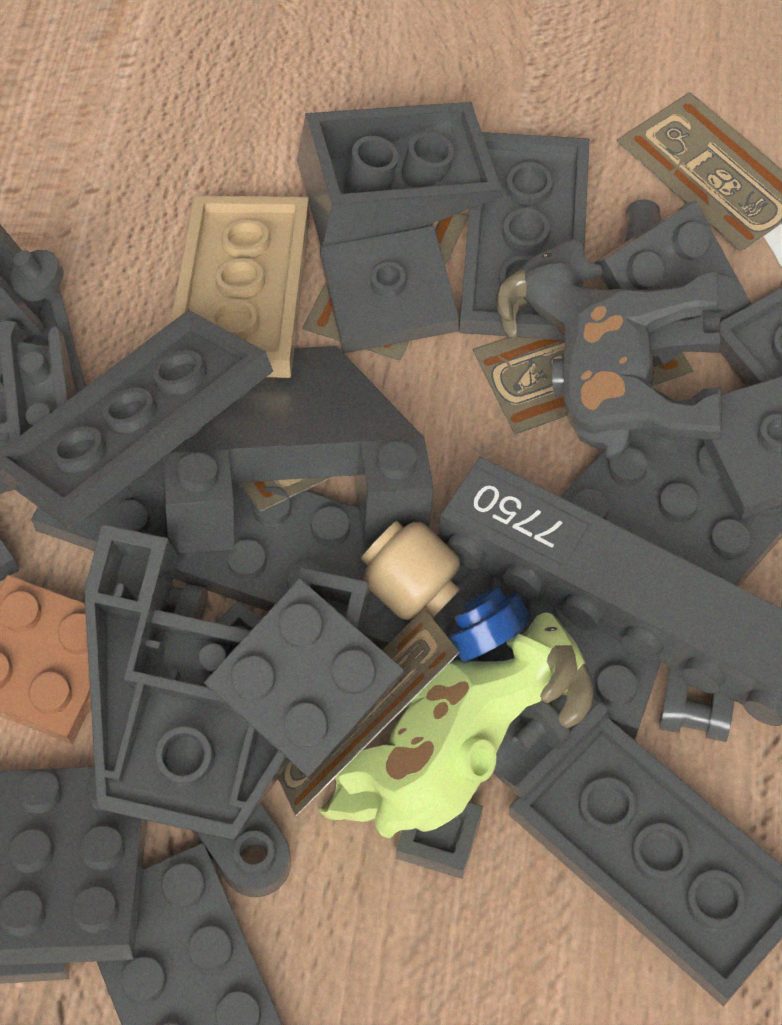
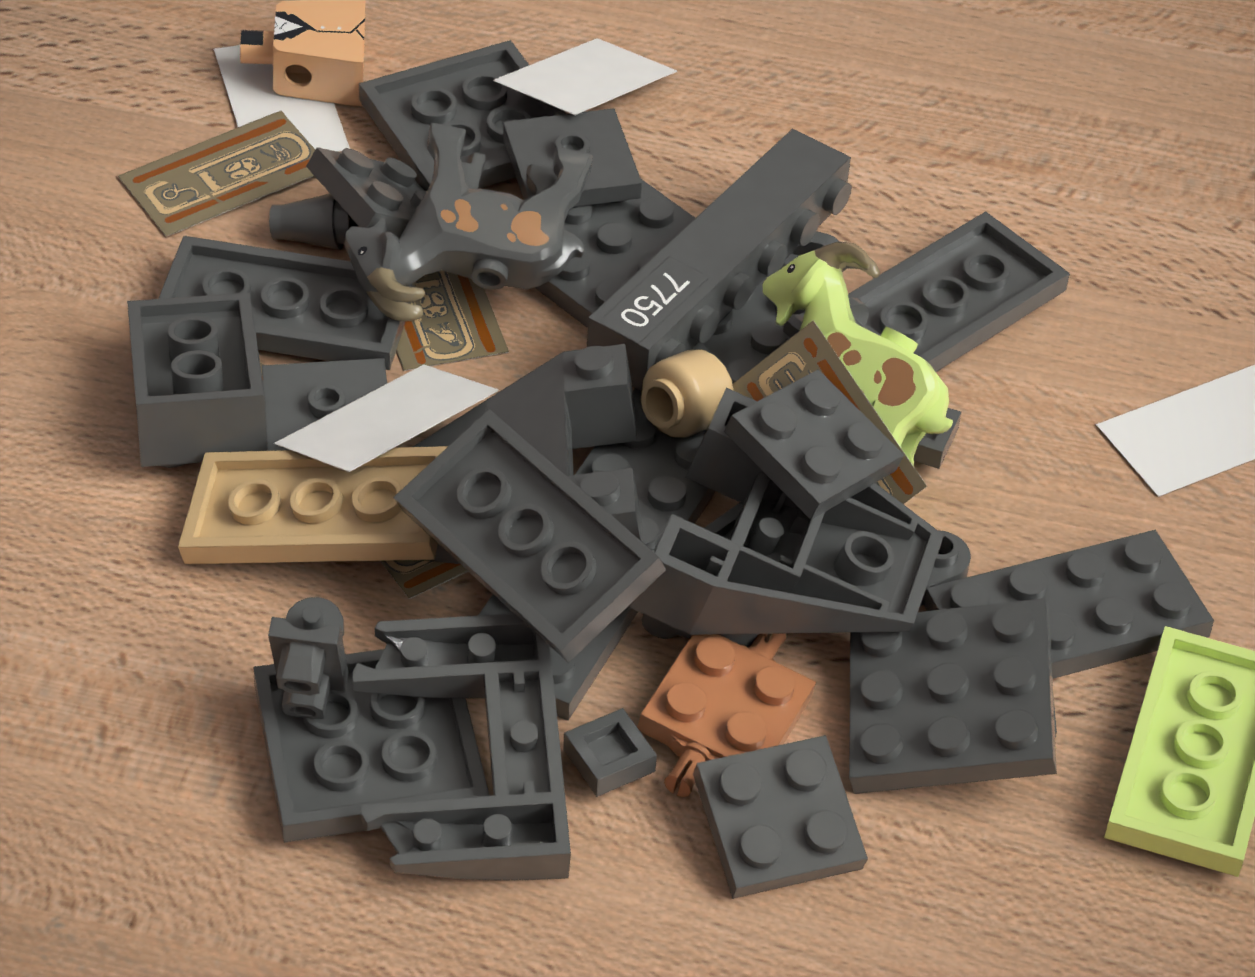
camera: 90 degrees left, 15 degrees down
(354, 321) = (386, 417): none -> white sticker
(488, 623) = (759, 329): blue plate -> none

